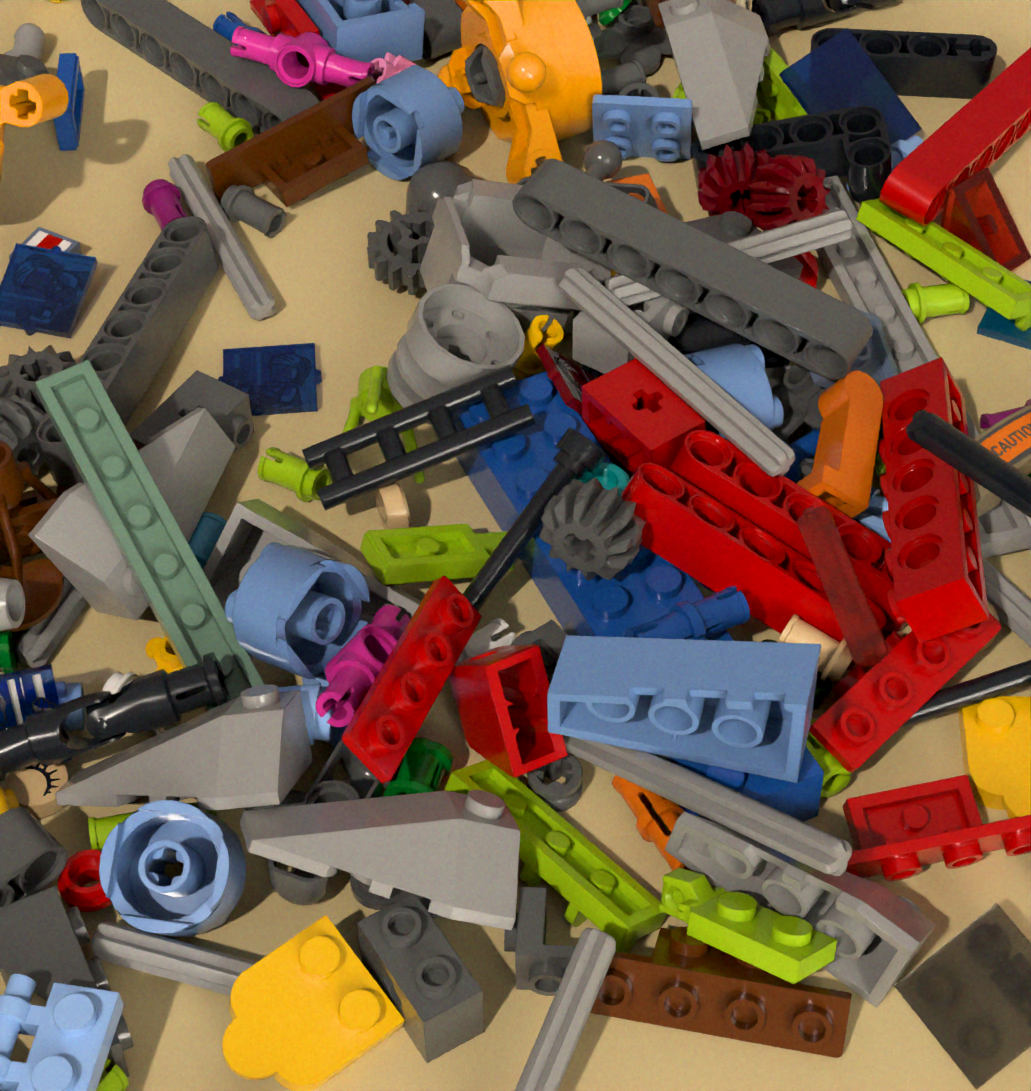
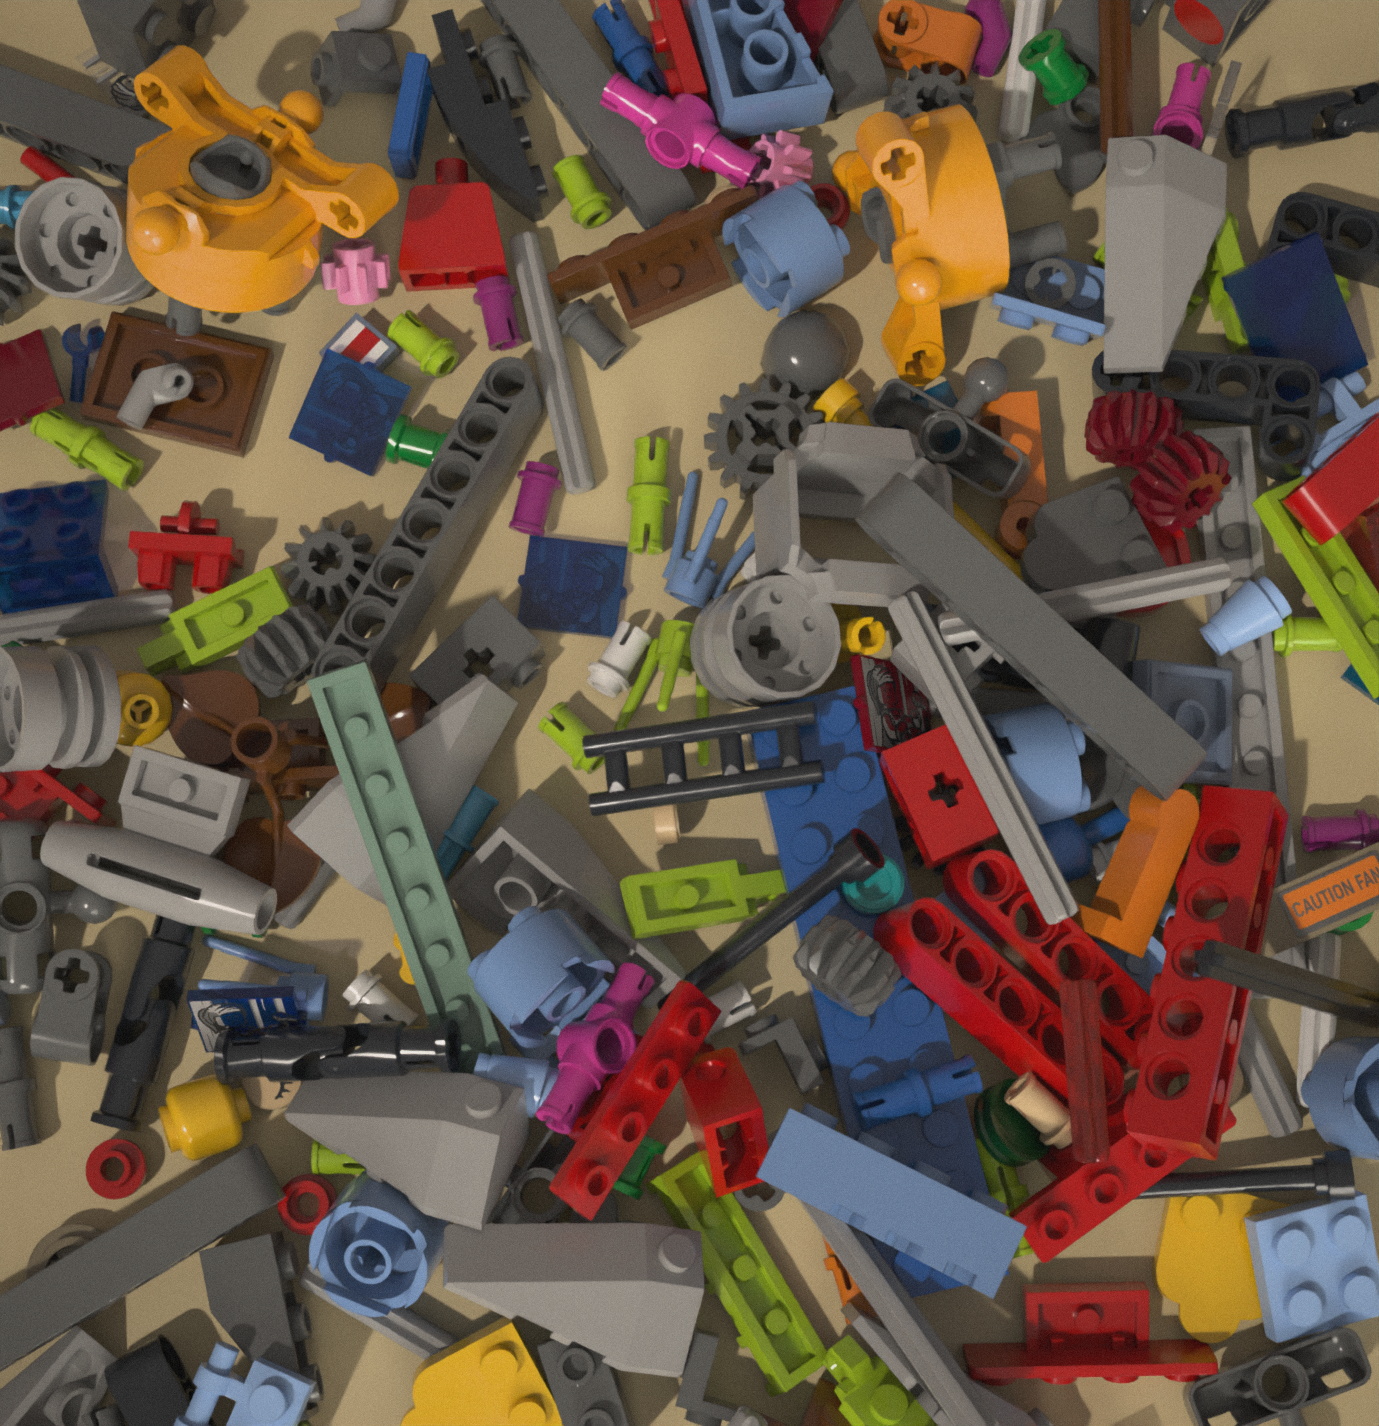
camera: 15 degrees right, 30 degrees up
(34, 196) = (355, 271): none -> bright pink gear
(99, 297) = (413, 443): none -> green bush
(114, 241) = (435, 354): none -> lime pin
(115, 164) = (450, 233): none -> red torso
(132, 100) = (484, 128): none -> black slope
(139, 61) = (501, 61): none -> dark grey pin
(224, 310) = (534, 498): none -> magenta pin
(321, 417) = (618, 660): none -> white pin
(326, 304) = (648, 496): none -> lime pin
(380, 340) = (694, 577): none -> medium blue plant
(880, 275) = (1247, 615): none -> light blue cone

